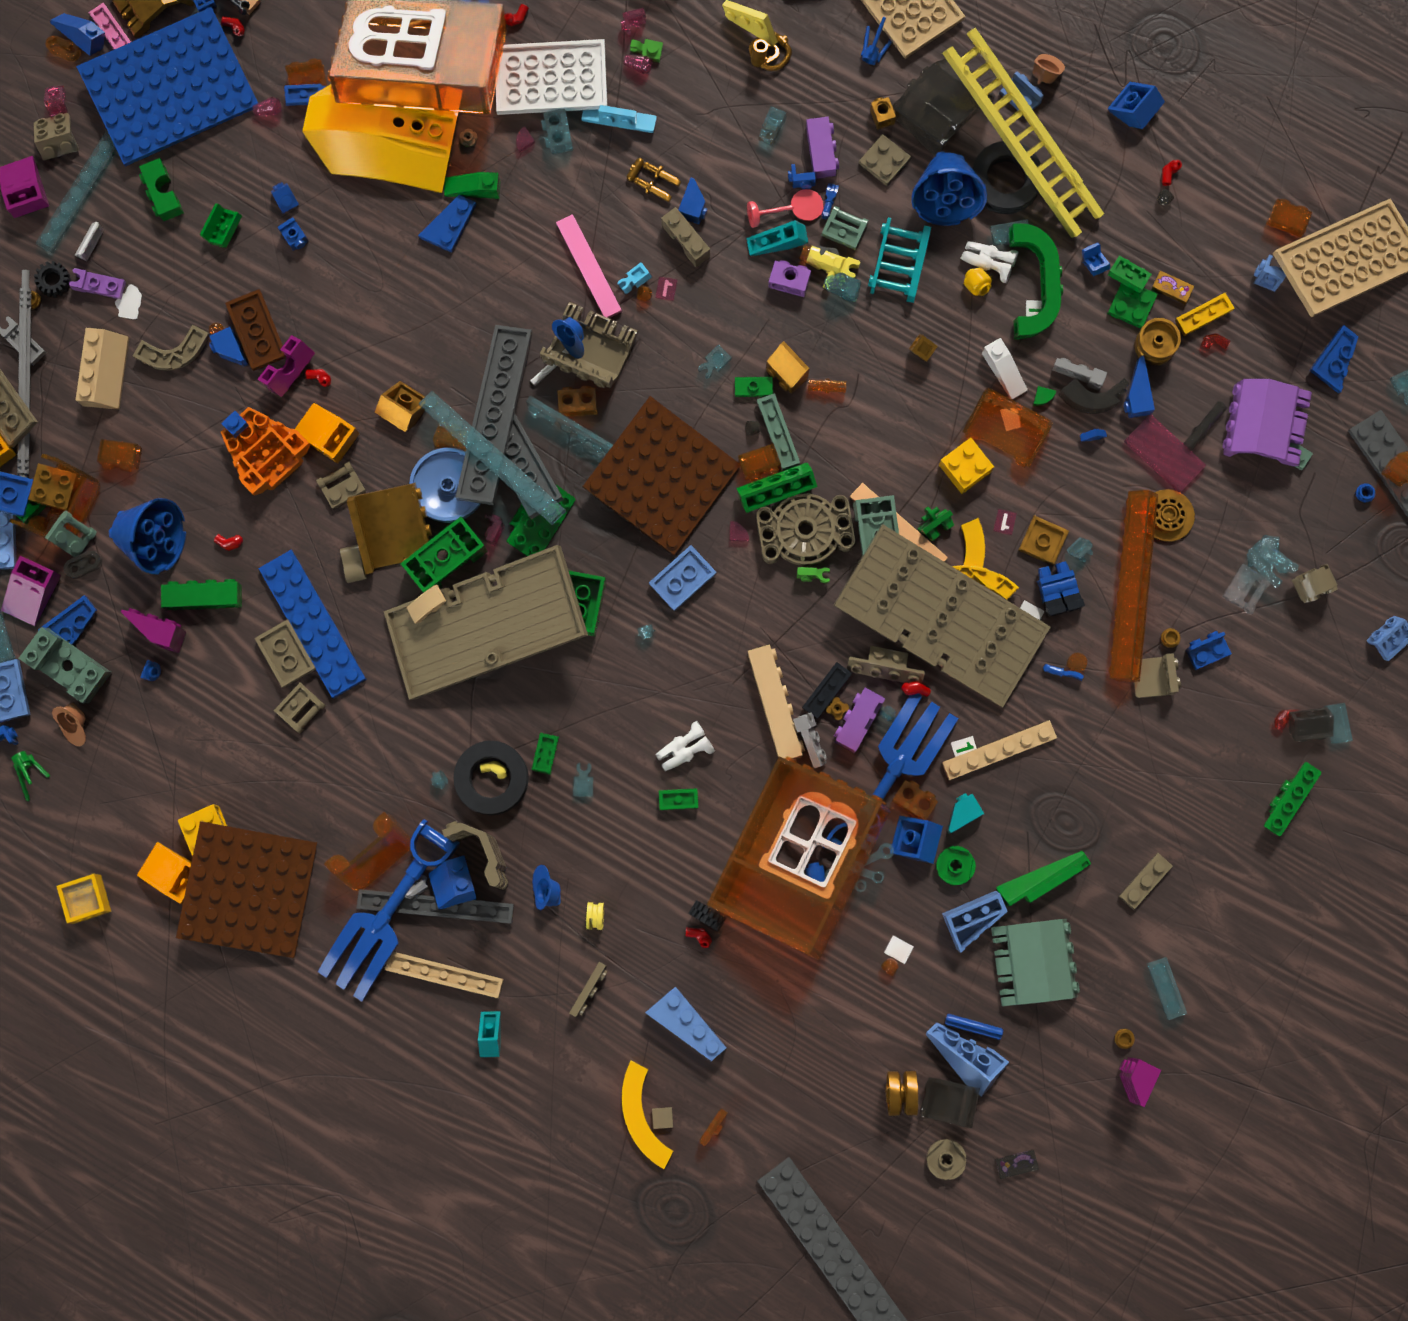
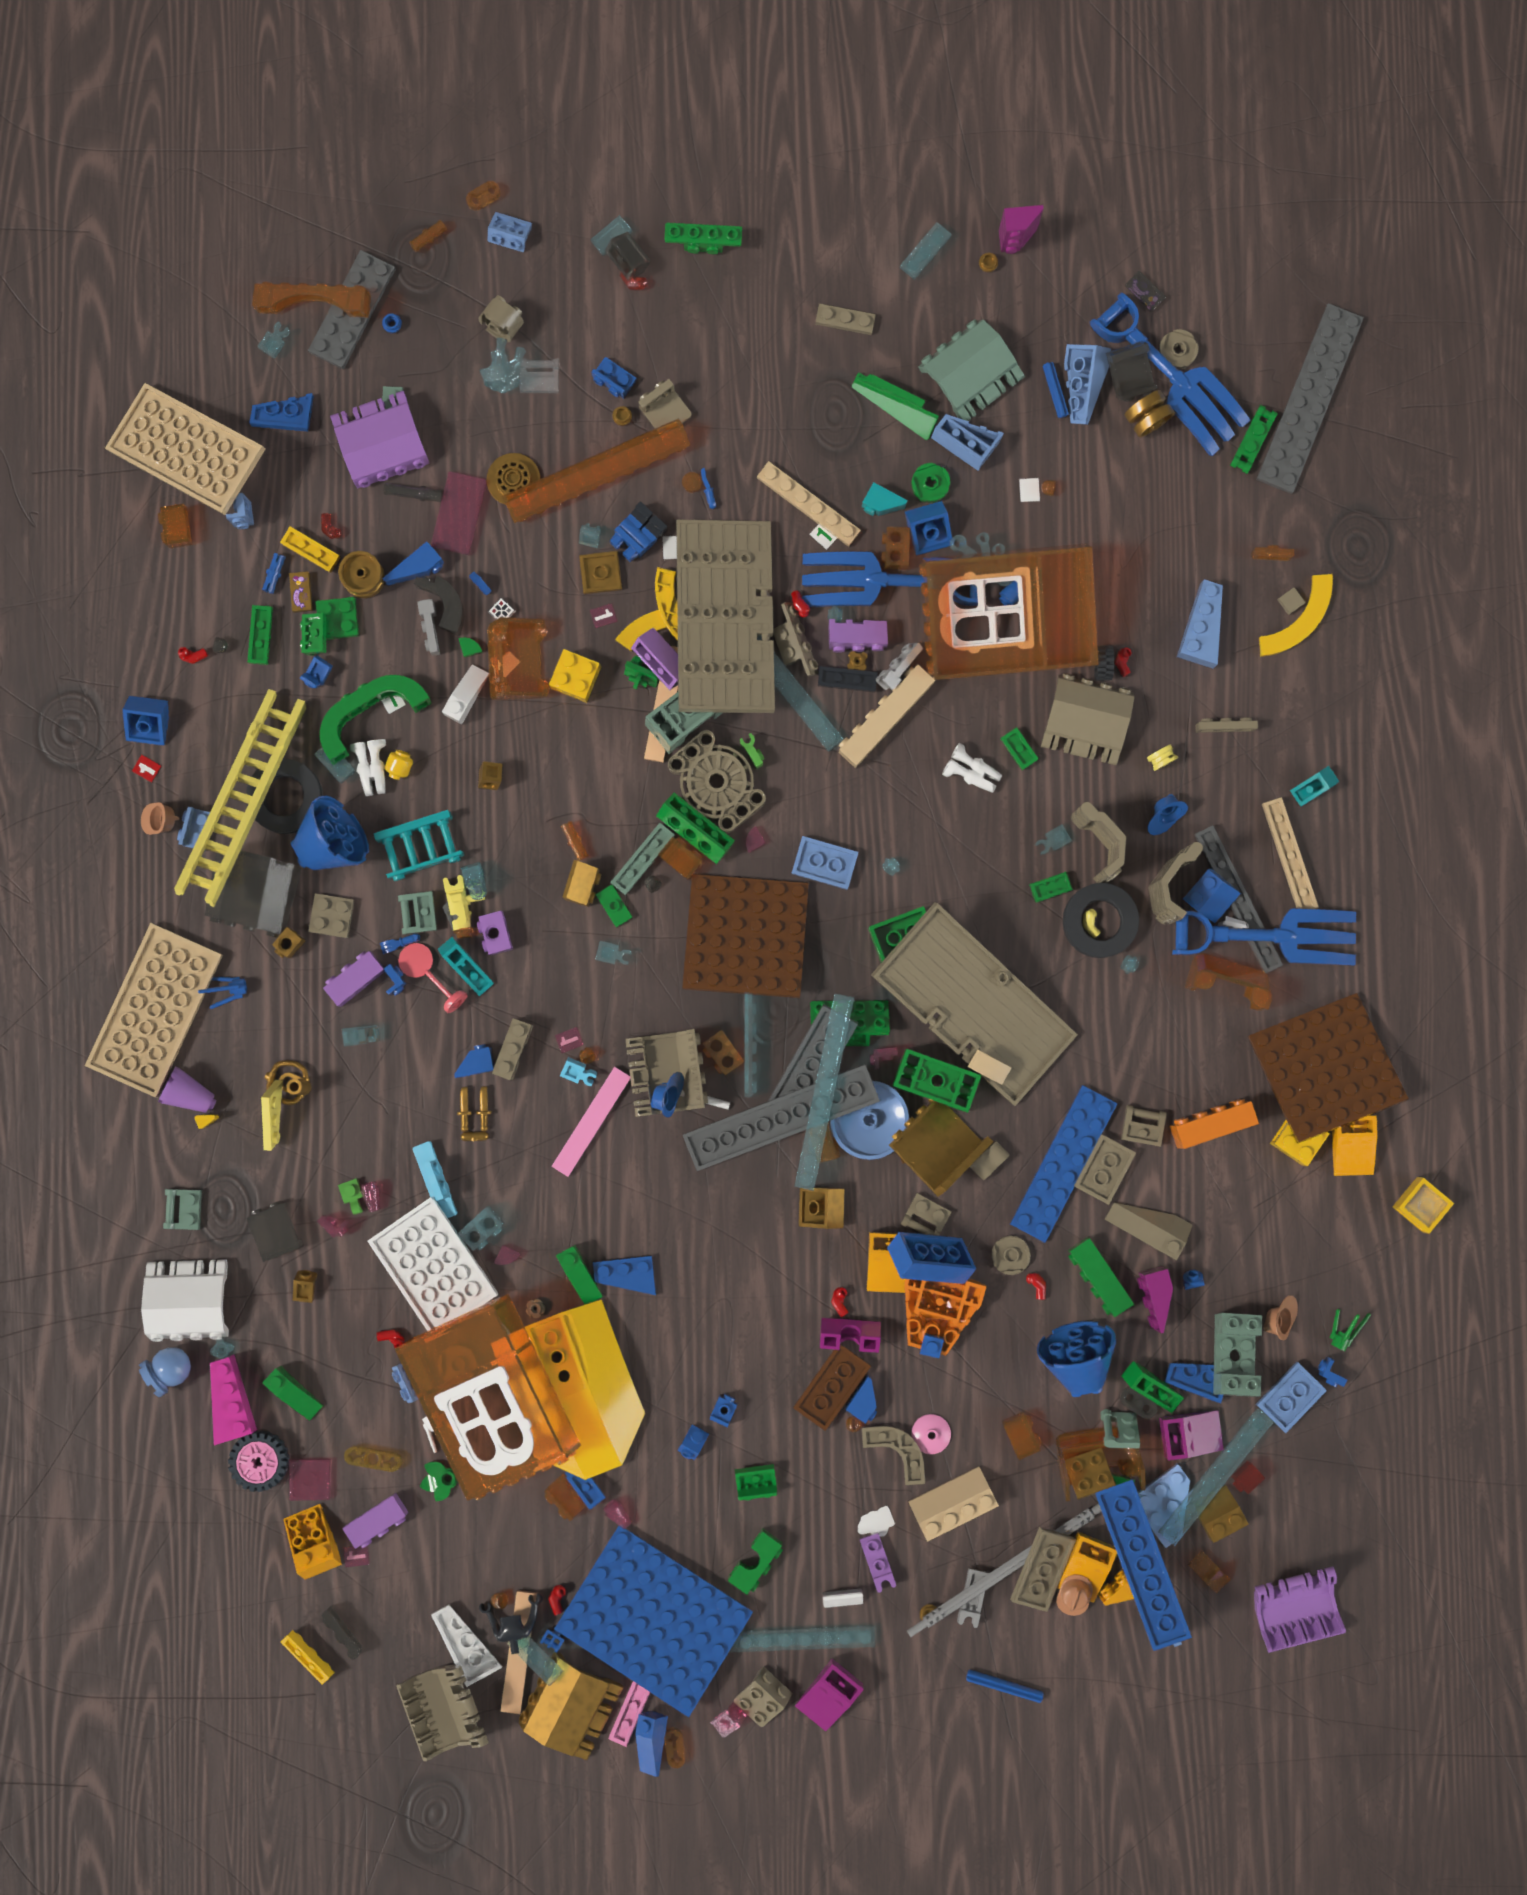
camera: 125 degrees left, 5 degrees up
(49, 269) = (907, 1616): black tyre -> none
(87, 582) = (1151, 1387): none -> green slope
(171, 394) = (935, 1424): none -> bright pink dish
(209, 665) = (1158, 1229): none -> dark tan wedge
(262, 764) = (1214, 1124): none -> orange brick
(267, 535) = (1010, 1255): none -> dark tan tile
(302, 461) = (931, 1258): none -> blue brick
(577, 813) = (1088, 818): none -> dark tan hinge
(670, 875) = (1089, 716): none -> dark tan hinge
(825, 1176) = (1253, 439): none -> green plate
(830, 641) = (804, 705): none -> clear light blue plate
(911, 1141) = (1182, 383): none -> blue piece
(942, 540) = (658, 657): none -> medium lavender brick
(1058, 440) = (501, 609): none -> tile
(1096, 85) = (146, 768): none -> red sticker
(1154, 233) = (260, 635): none -> green plate
(1201, 274) = (273, 573): none -> blue pin

